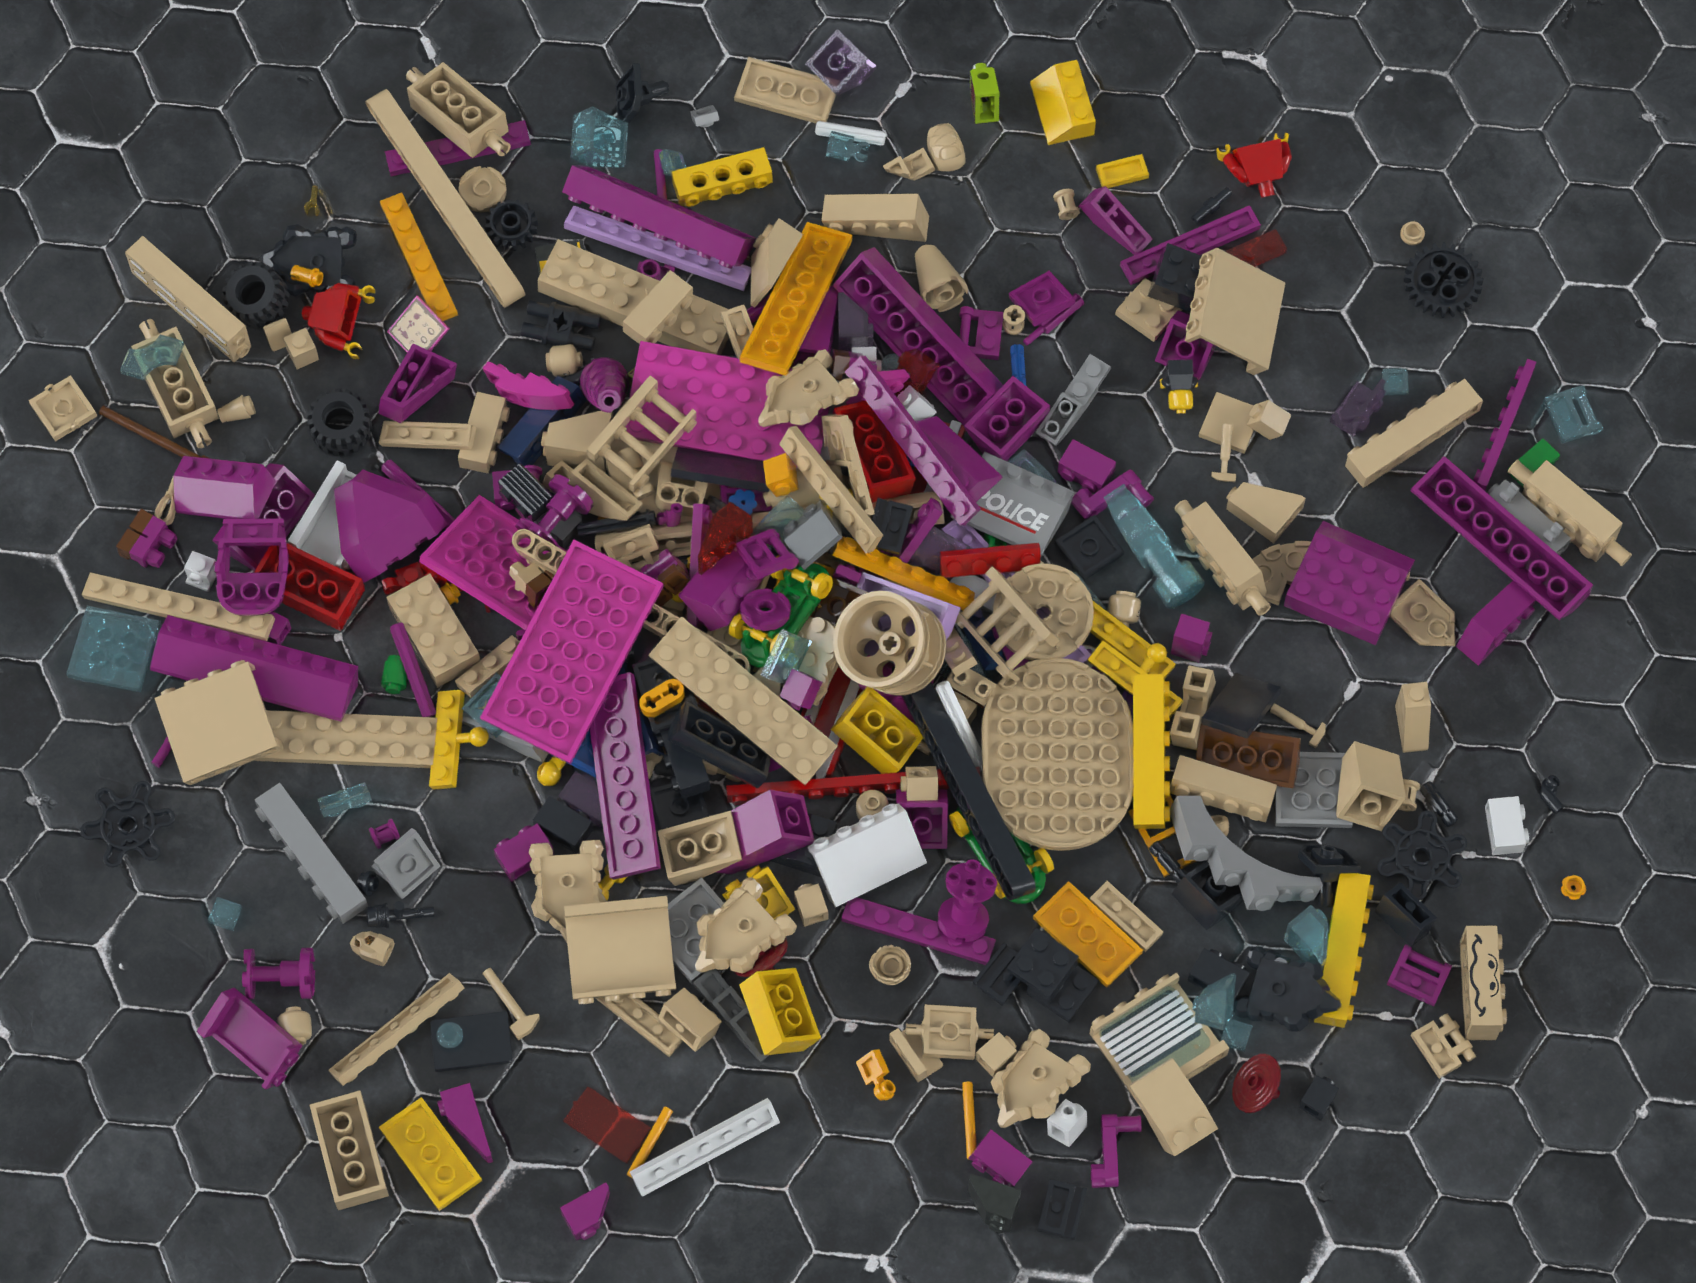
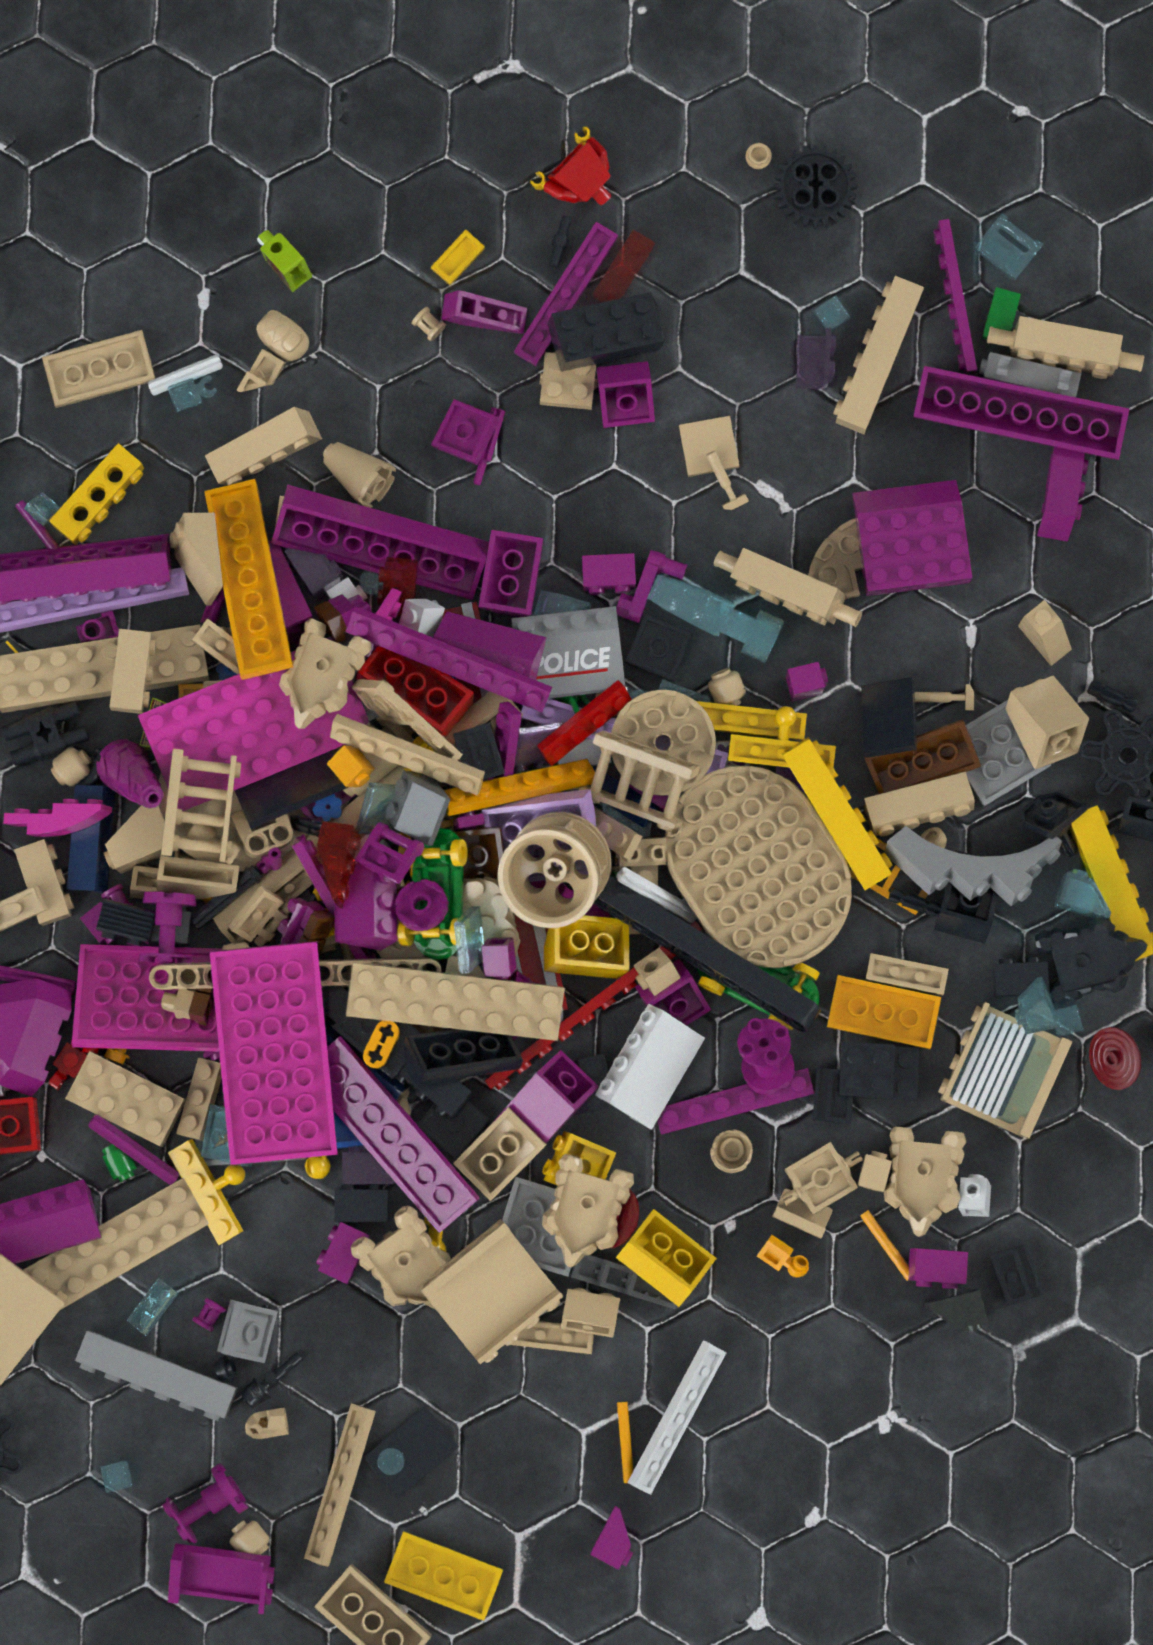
camera: 30 degrees left, 15 degrees up
(464, 1117) = (451, 1524): magenta slope -> none
(524, 1024) = (447, 1406): tan piece -> none
(607, 1124) = (577, 1449): clear red piece -> none
(704, 116) = (40, 442): light grey plate -> none
(811, 904) = (626, 1139): tan brick -> none
(841, 64) = (133, 313): clear purple slope -> none
(870, 803) = (623, 1016): tan head -> none
(988, 331) = (436, 495): magenta plate -> none
(1008, 315) = (458, 462): tan bush -> none
(1018, 362) = (485, 511): blue axle -> none
(1063, 103) = (362, 224): yellow slope -> none
(1074, 400) = (557, 515): light grey slope -> none
(1107, 1173) = (1035, 1218): magenta beam -> none
(1172, 1107) = (1058, 1127): tan slope -> none
(1179, 382) = (642, 437): black piece -> none
(1196, 700) = (848, 745): tan arch -> none
(1236, 308) = (651, 339): tan panel -> none
(1264, 508) = (791, 512): tan slope -> none
(1268, 419) = (744, 424): tan brick -> none
(1411, 788) = (1083, 702): tan bush -> none
(1424, 616) = (995, 525): tan tile -> none

